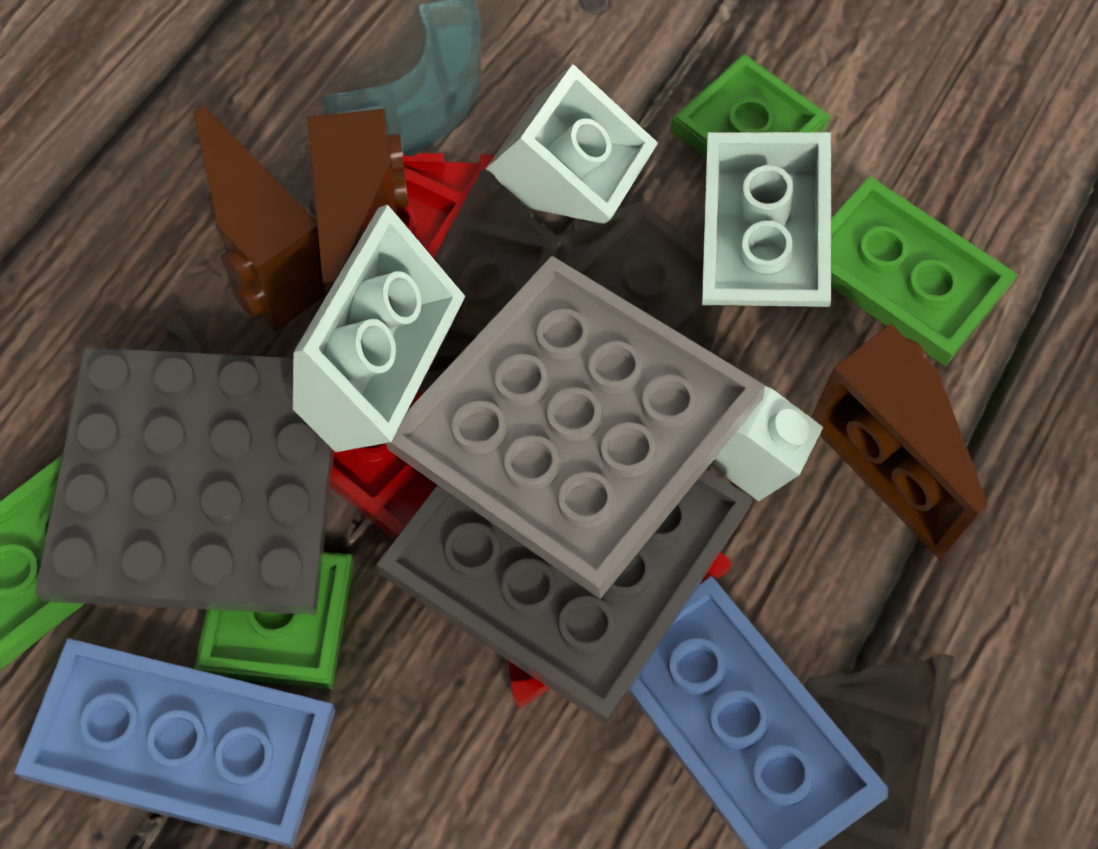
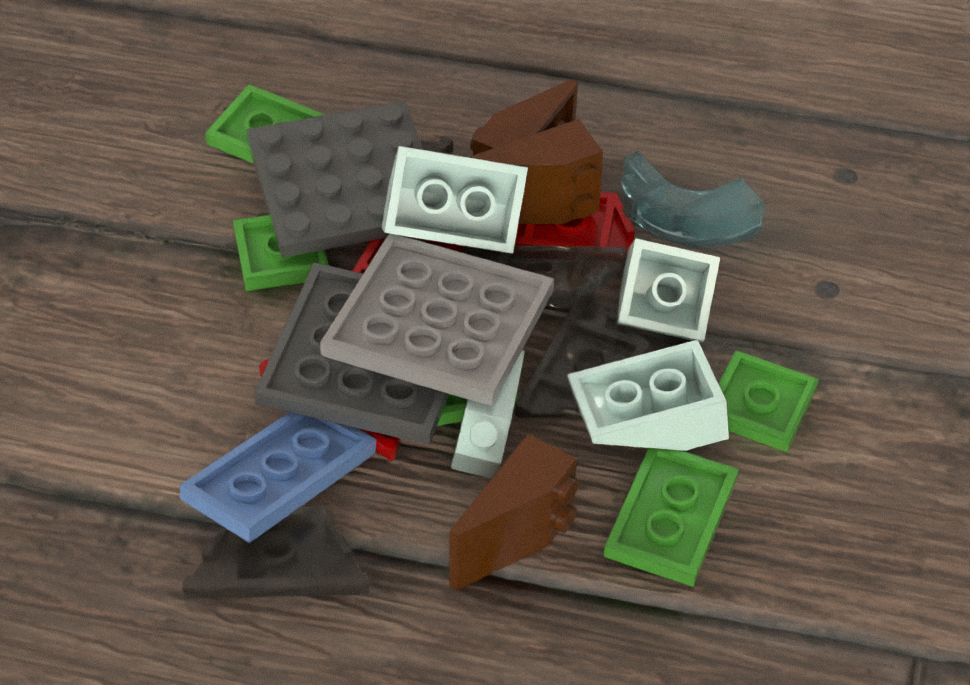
camera: 75 degrees right, 15 degrees down
(177, 742) = (187, 227): medium blue plate -> none

